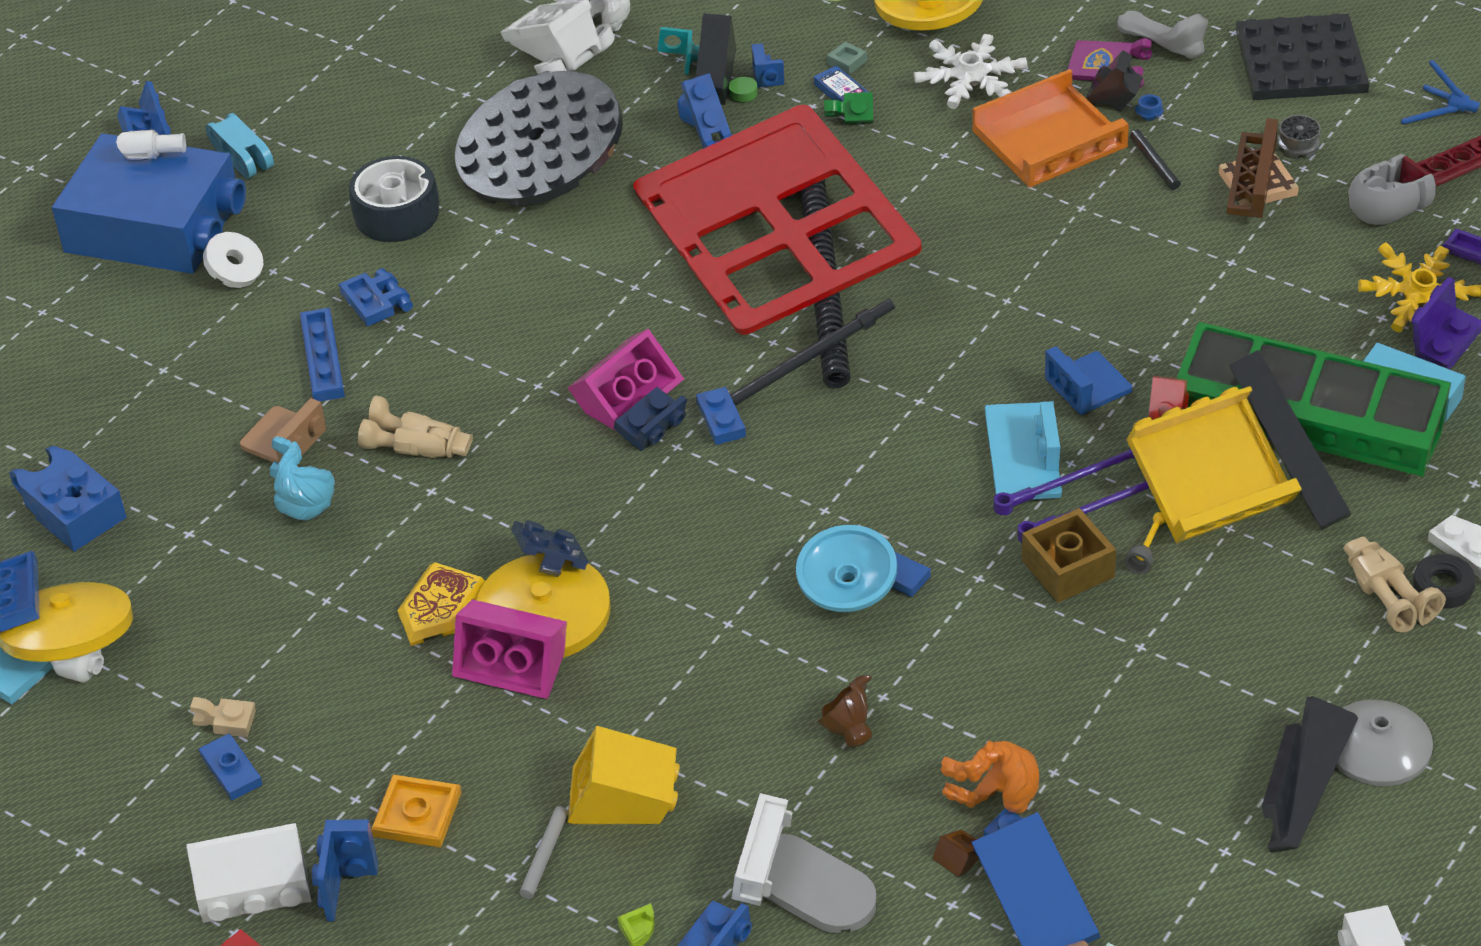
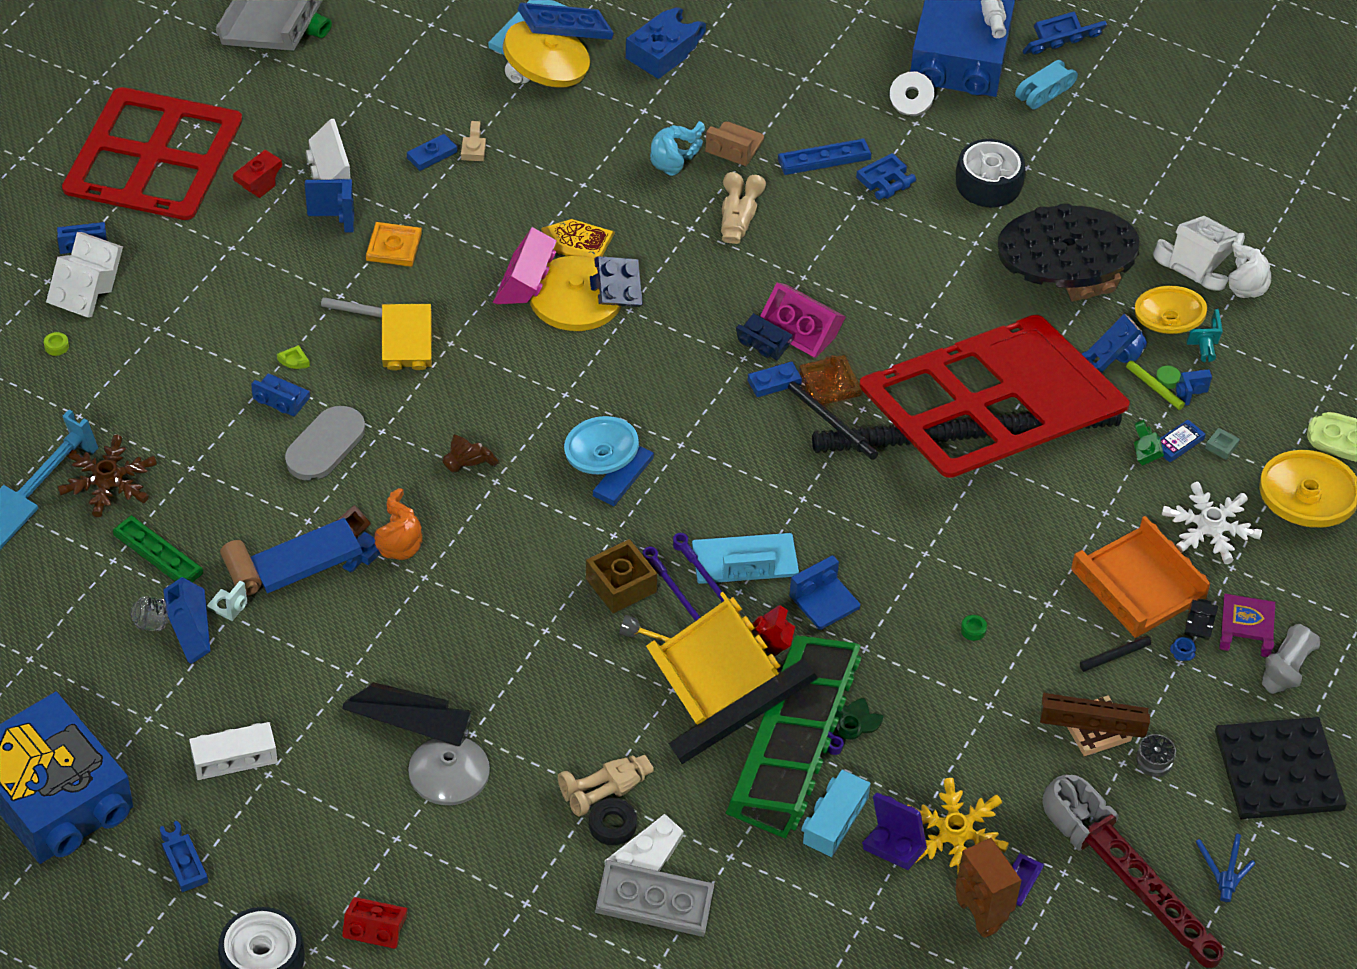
camera: 80 degrees right, 5 degrees up
(652, 67) = (1170, 309): none -> yellow dish
(717, 52) = (1179, 345): black slope -> none
(730, 355) = (830, 375): none -> clear orange plate
(757, 98) = (1155, 385): none -> lime bar
(759, 849) = (342, 405): white container -> none
(1122, 265) = (973, 627): none -> green tile

